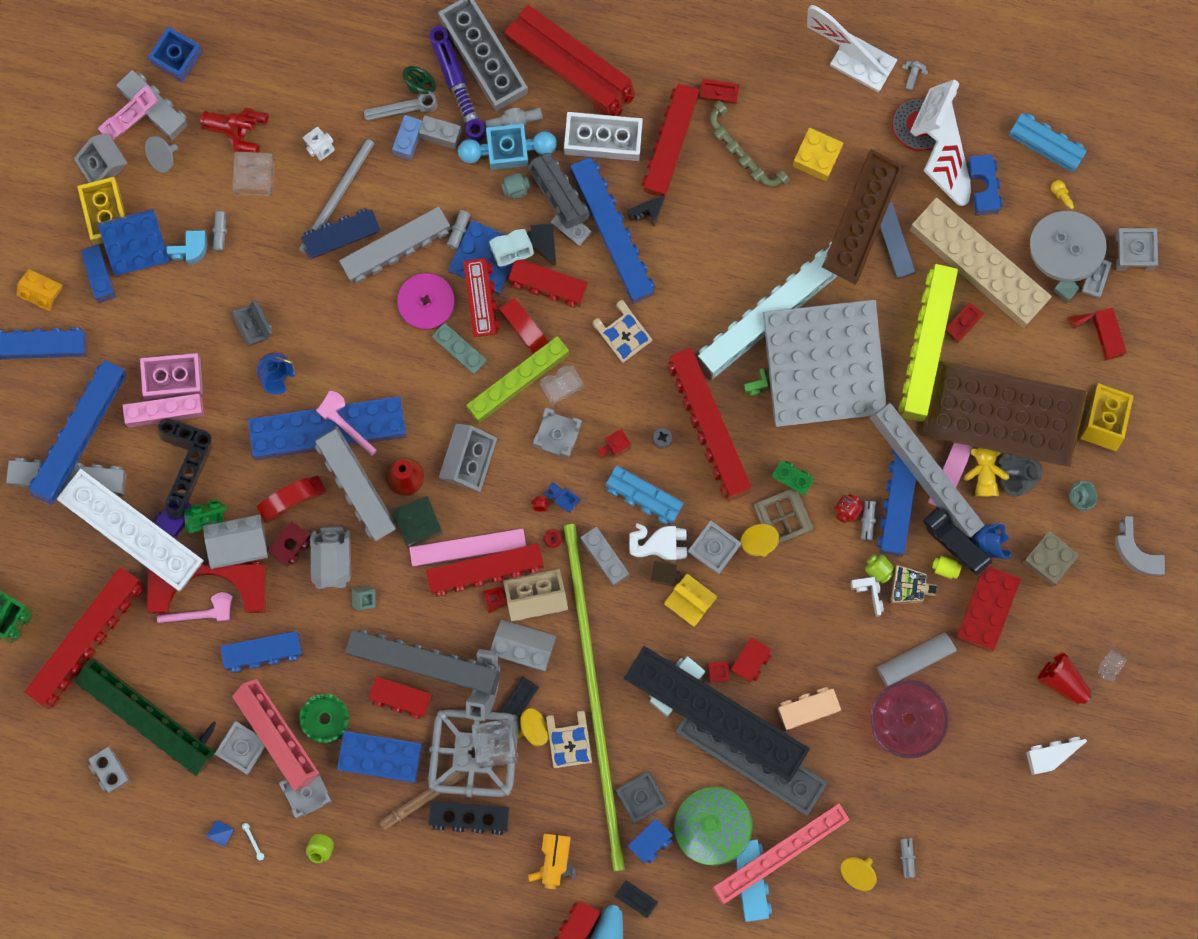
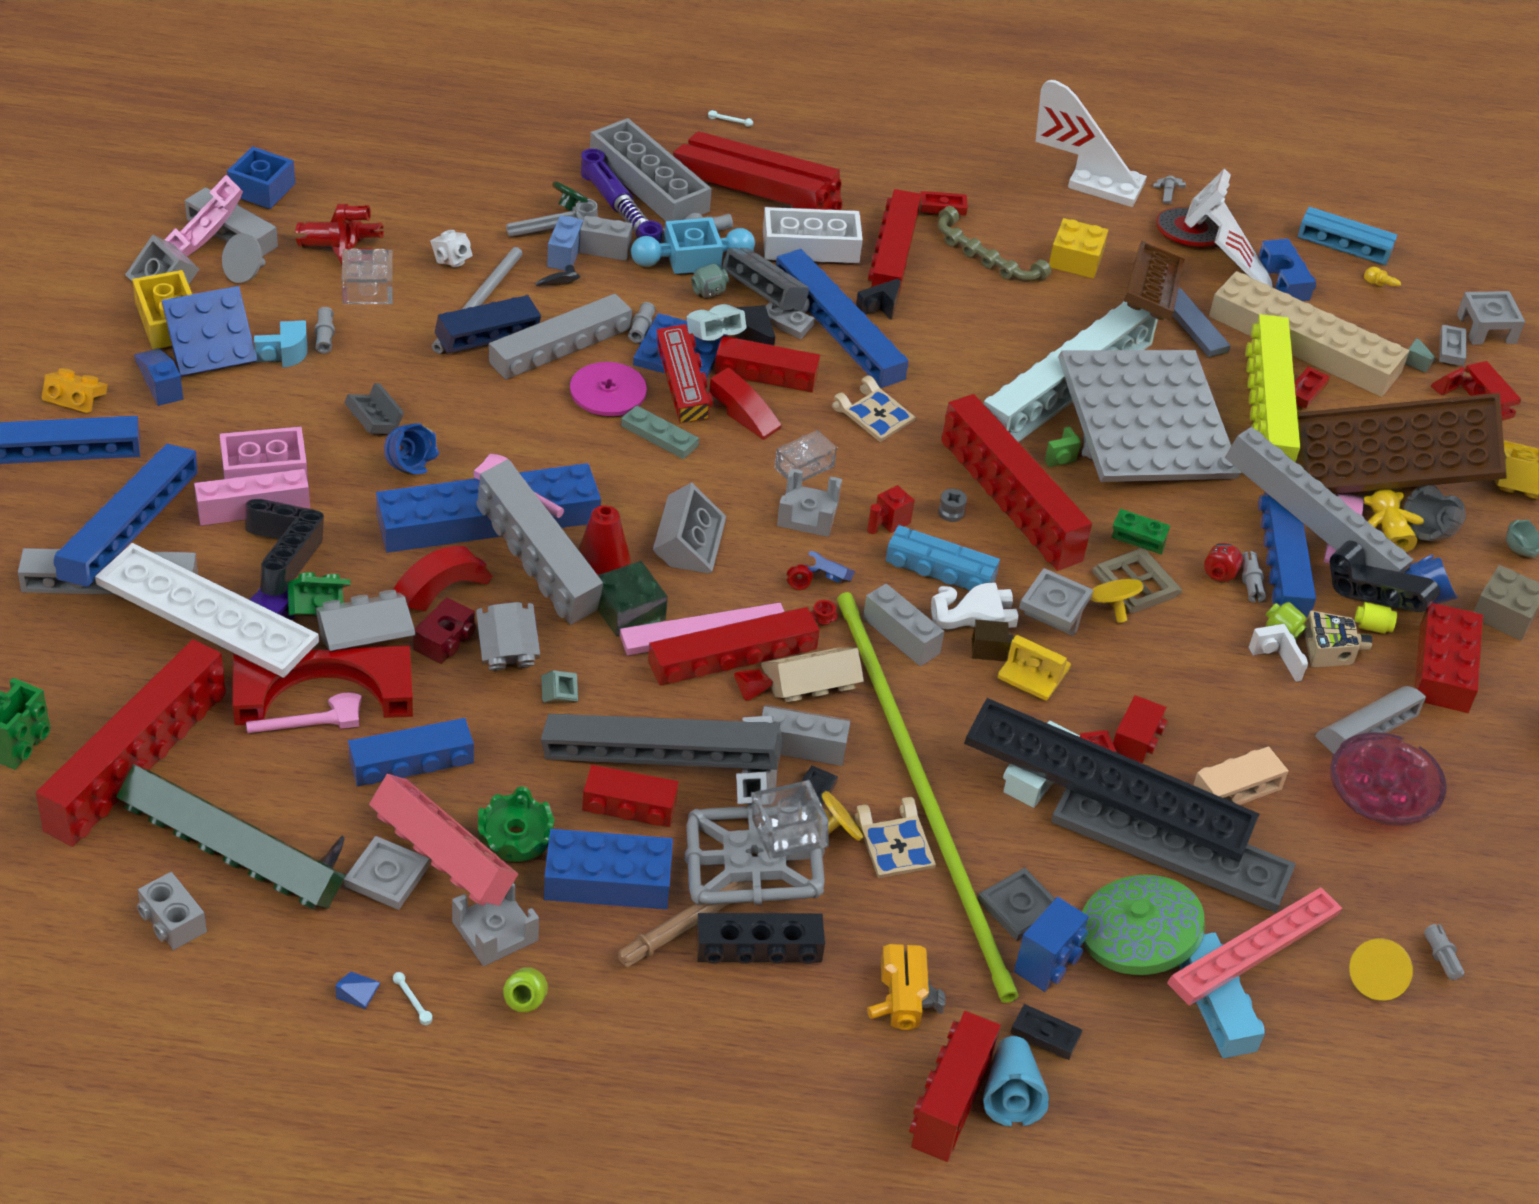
camera: 10 degrees left, 35 degrees down
(408, 172) = (560, 278): none -> black bar
(518, 380) = (746, 450): lime brick -> none
(1067, 246) = (1407, 316): light grey plate -> none

